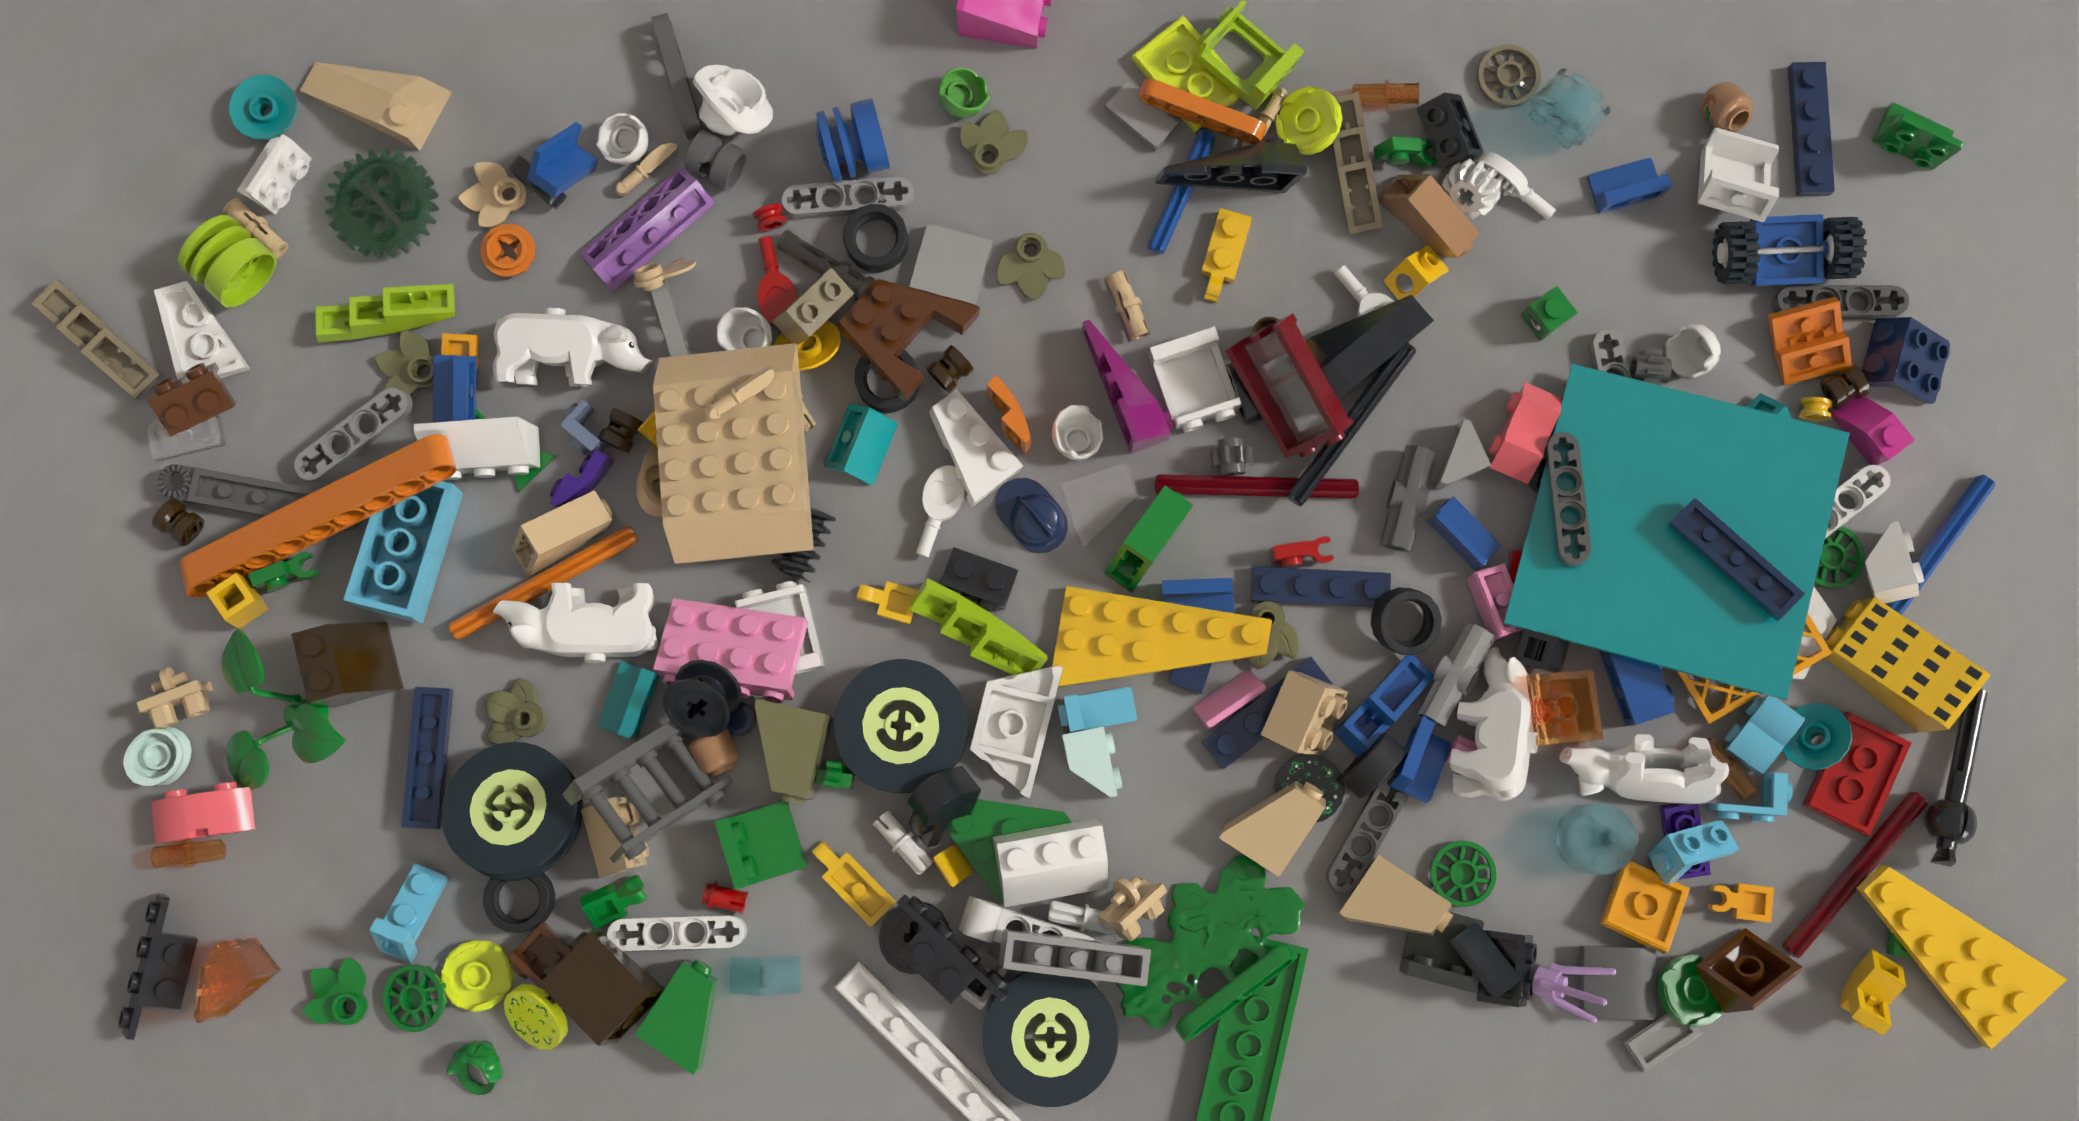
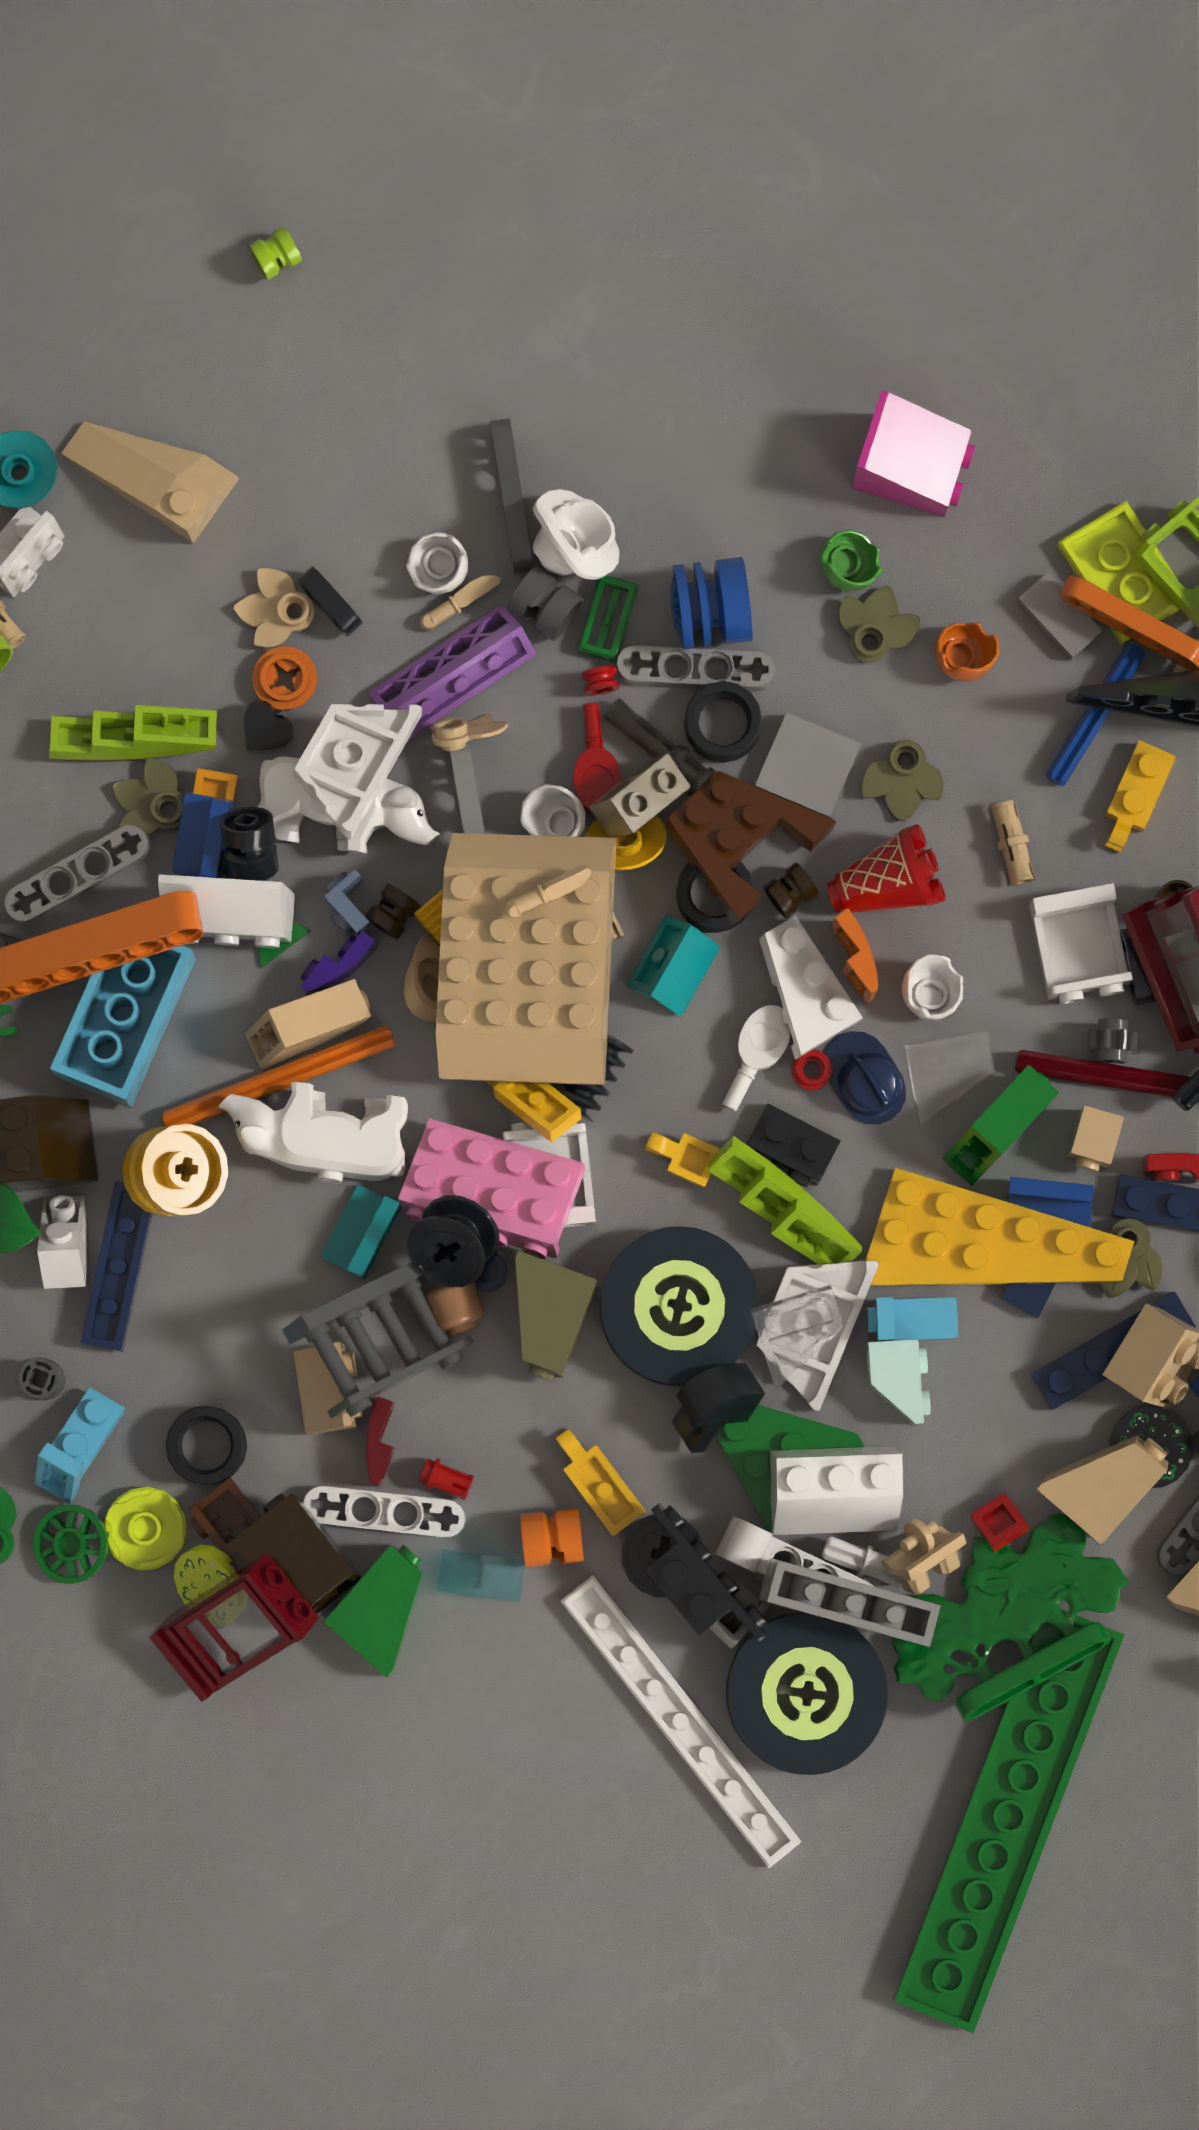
camera: 15 degrees right, 0 degrees up
(358, 223) = (114, 622): clear green gear -> none
(377, 744) = (63, 1242): none -> white slope
(379, 857) = (49, 1378): none -> dark grey wheel
(482, 665) = (152, 1164): none -> wheel
(482, 1056) = (139, 1619): green piece -> none
(489, 389) = (249, 844): none -> black wheel
(496, 293) = (265, 728): none -> black tile
(510, 710) = (220, 1227): olive plate -> none
(526, 842) = (204, 1300): black wheel -> none
(556, 1052) = (234, 1627): none -> dark red door
(561, 162) = (363, 584): blue panel -> none
(567, 306) = (353, 758): none -> white wing
(611, 904) = (310, 1467): green plate -> none
(664, 885) = (378, 1453): none -> dark red slope
(760, 844) = (497, 1421): green bracket -> none
(761, 575) = (538, 1106): none -> yellow plate
(766, 194) = (599, 651): none -> green tile
(819, 935) = (552, 1537): none -> orange wheel
(835, 776) = (594, 1353): green plate -> none
(903, 842) = (663, 1443): white axle -> none
(953, 865) = (718, 1478): yellow slope -> none
(990, 504) = (815, 1083): none -> red plate
(1000, 732) = (795, 1329): none -> clear wing
(1030, 346) = (890, 876): none -> red cone
(1068, 154) = (966, 651): none -> orange hair
(1133, 404) = (1004, 965): magenta wedge -> none
(1192, 869) = (999, 1522): none -> red plate
(1228, 539) = (1094, 1138): none -> tan brick
(1228, 698) = (1069, 1327): bright pink slope -> none

